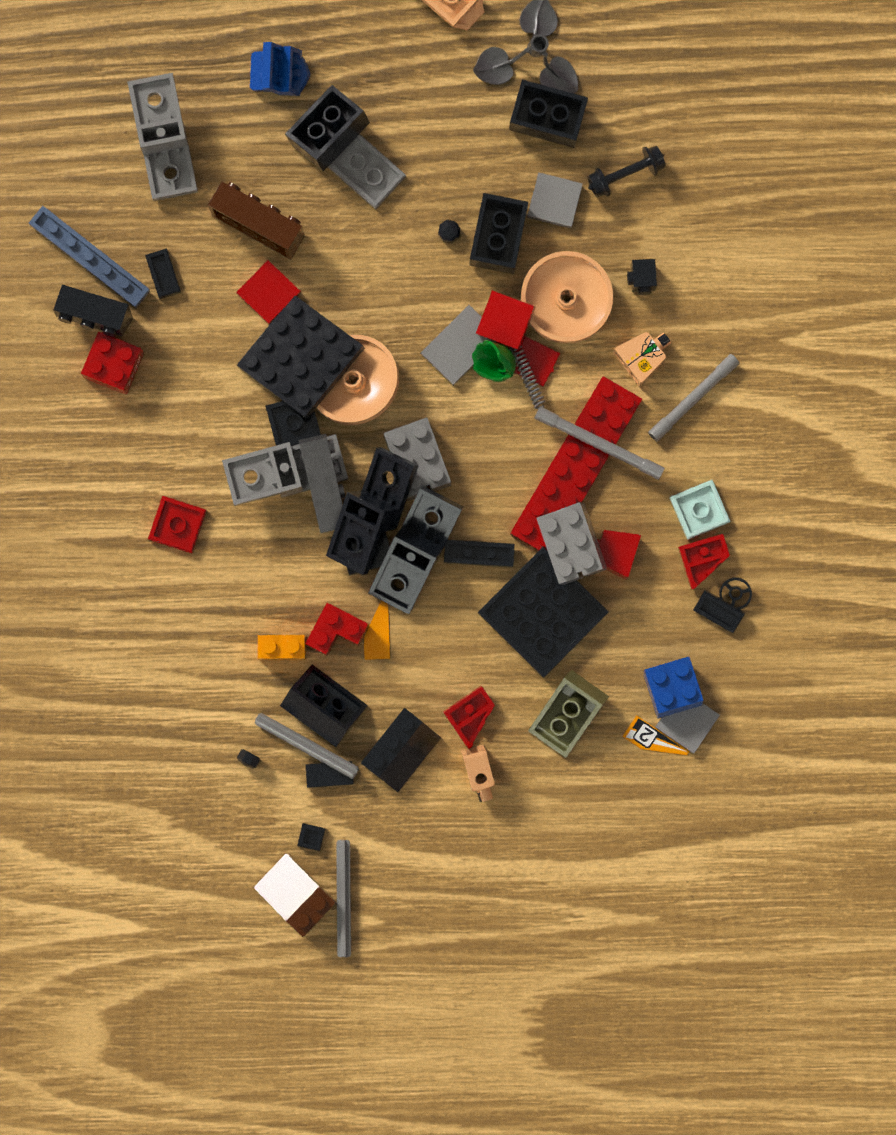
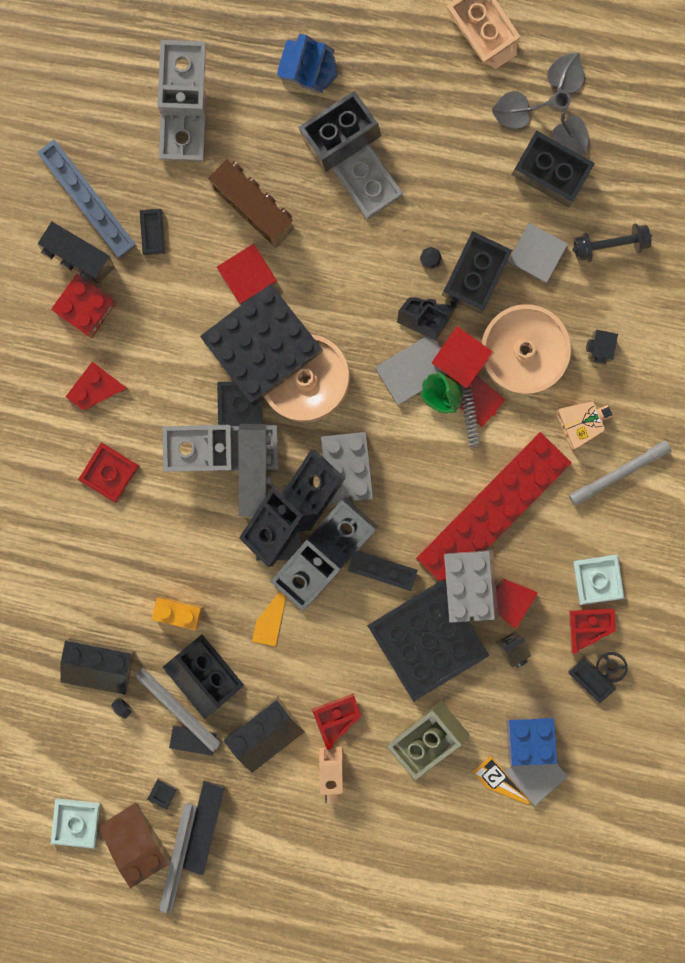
camera: 15 degrees right, 5 degrees up
(142, 442) = (94, 387): none -> red wing
(212, 723) = (96, 666): none -> black slope
(229, 889) = (75, 823): none -> light aqua tile
(335, 623) = (231, 603): red brick -> none
(362, 860) = (203, 827): none -> black slope
(458, 289) = (425, 316): none -> black slope
(554, 421) = (485, 465): light grey piece -> none
(633, 598) = (514, 649): none -> black slope

